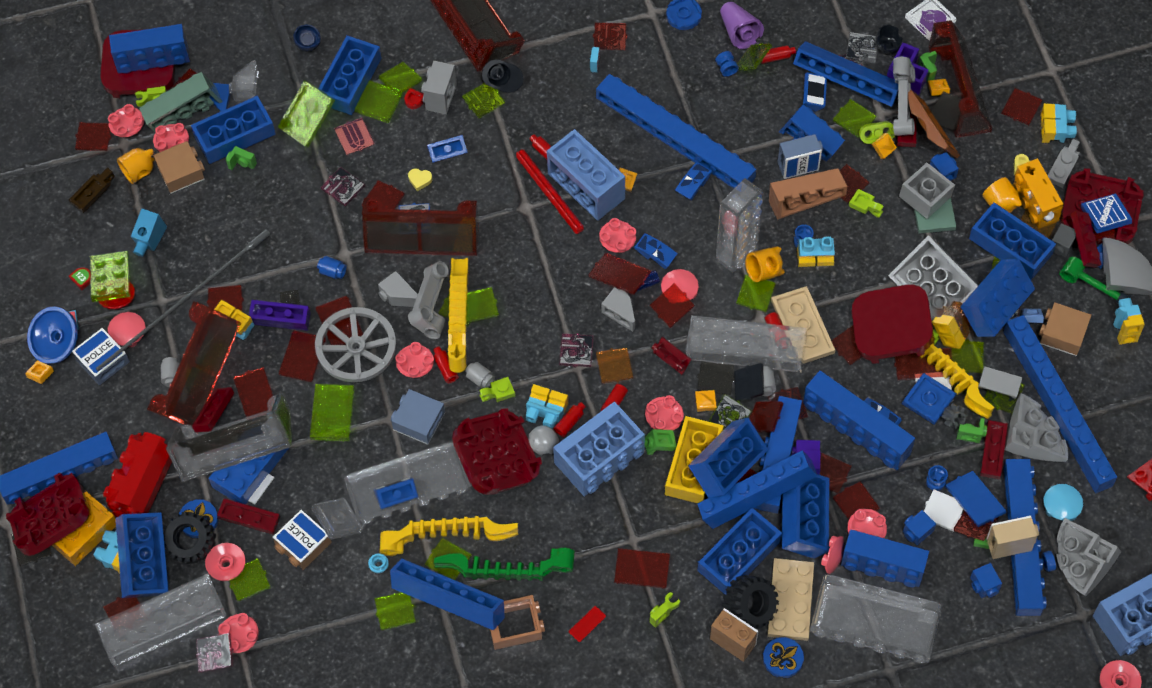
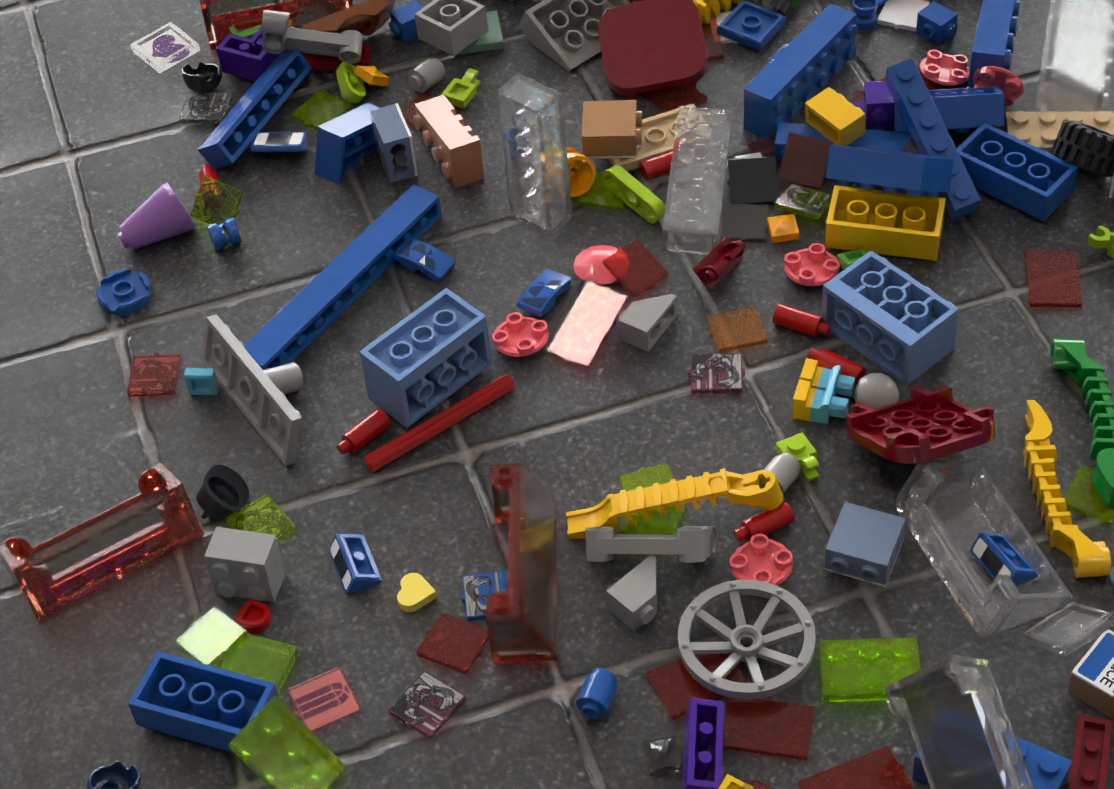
camera: 90 degrees left, 15 degrees down
(579, 87) = (254, 390): none -> light grey plate
(744, 303) = (634, 193): none -> lime beam
(792, 432) = (835, 117): none -> yellow piece
(799, 289) = (611, 129): none -> medium nougat piece
(882, 180) = (426, 75): none -> light grey brick

